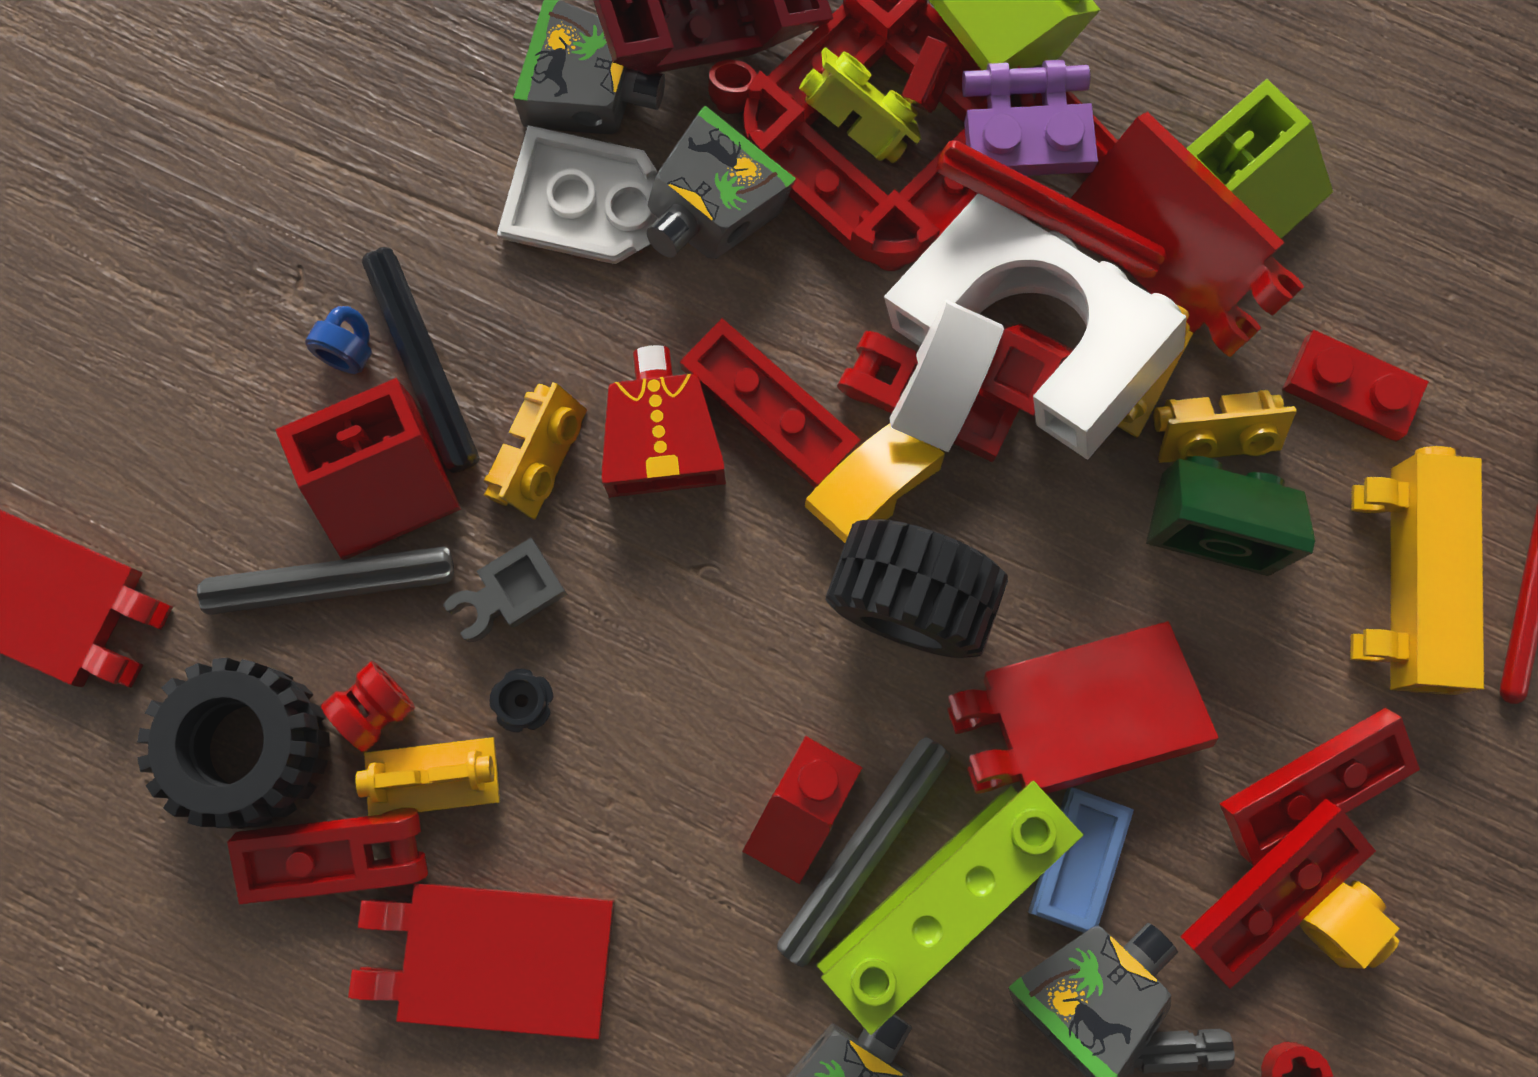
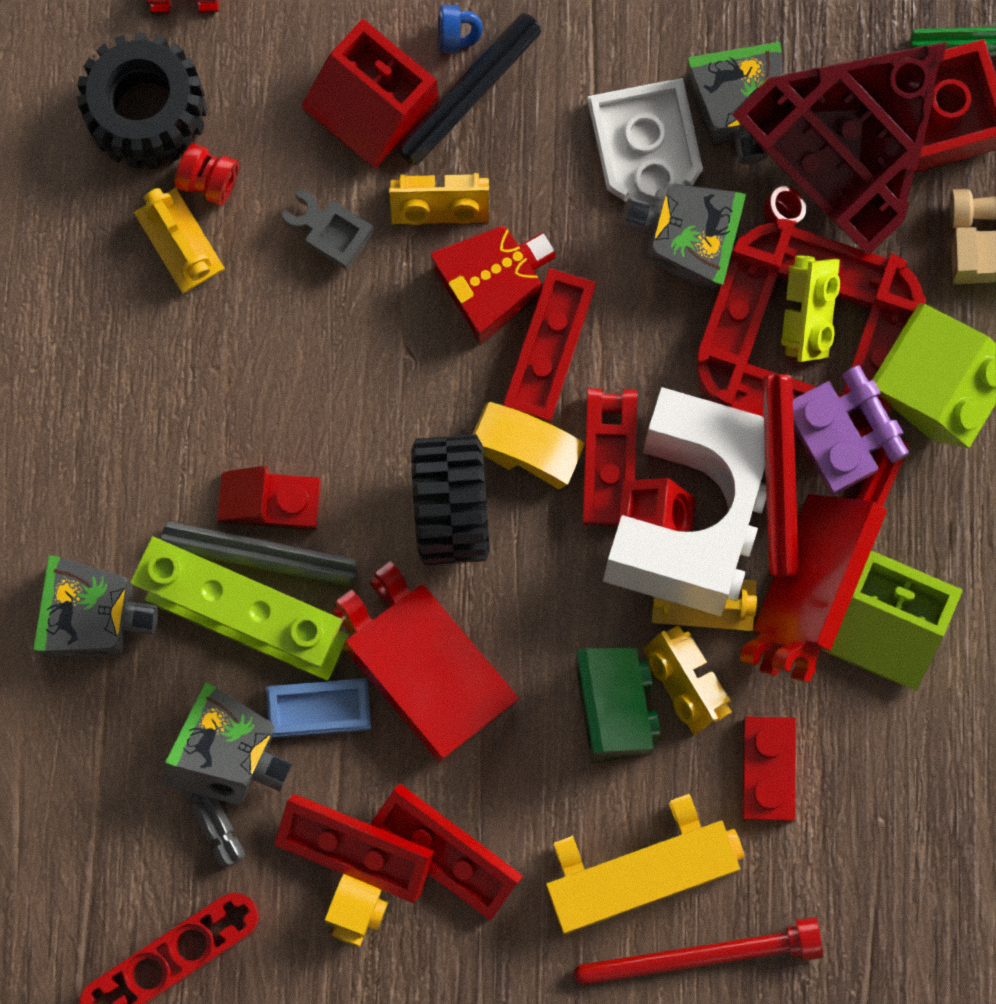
camera: 70 degrees right, 0 degrees up
(325, 580) = (282, 104): dark grey axle -> none
(326, 857) = (95, 197): red plate -> none
(493, 960) = (77, 340): red tile -> none
(504, 698) = (253, 263): black plate -> none
(930, 75) = (850, 344): red tile -> none
(947, 375) = (618, 455): white slope -> none

